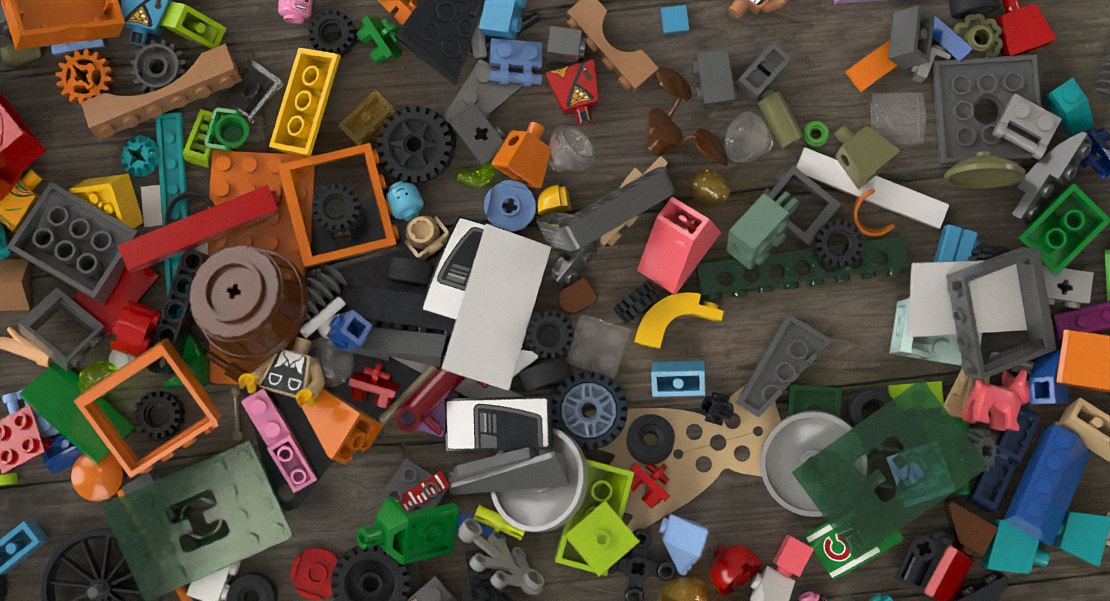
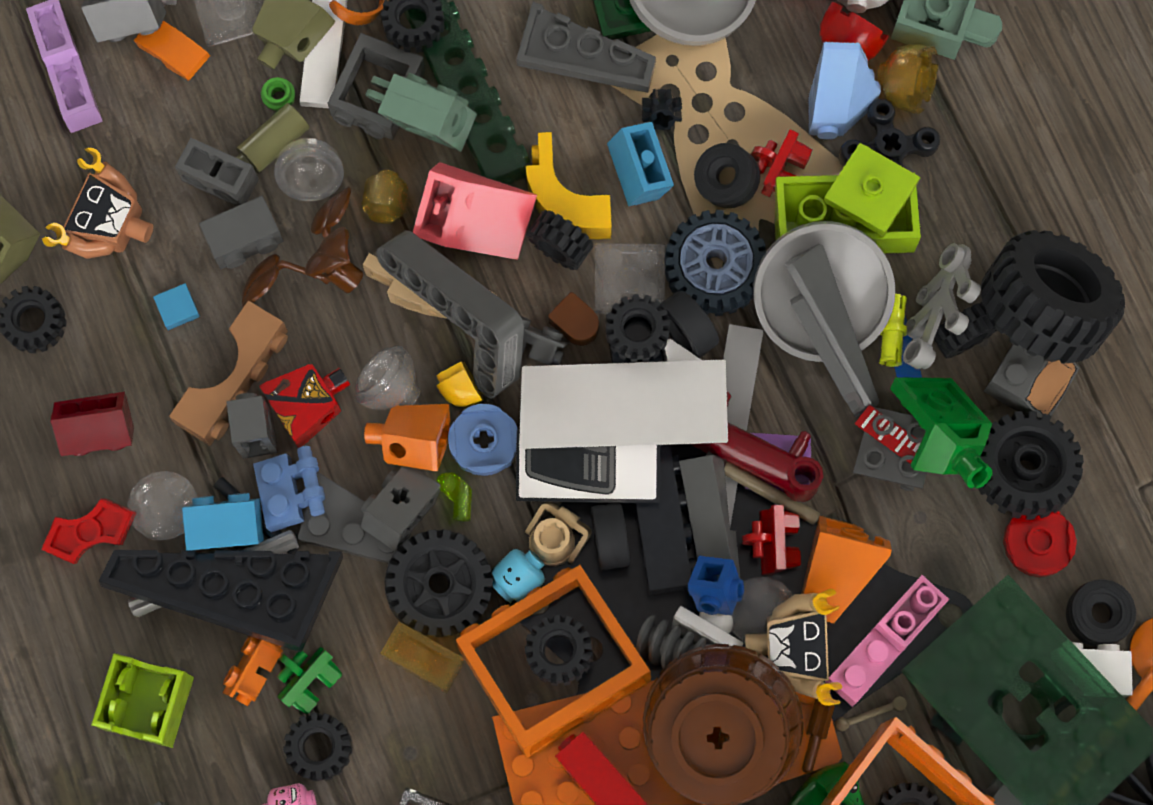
camera: 110 degrees left, 10 degrees down
(304, 102) = (425, 743): yellow slope -> none
(498, 423) = (771, 362): slope -> none

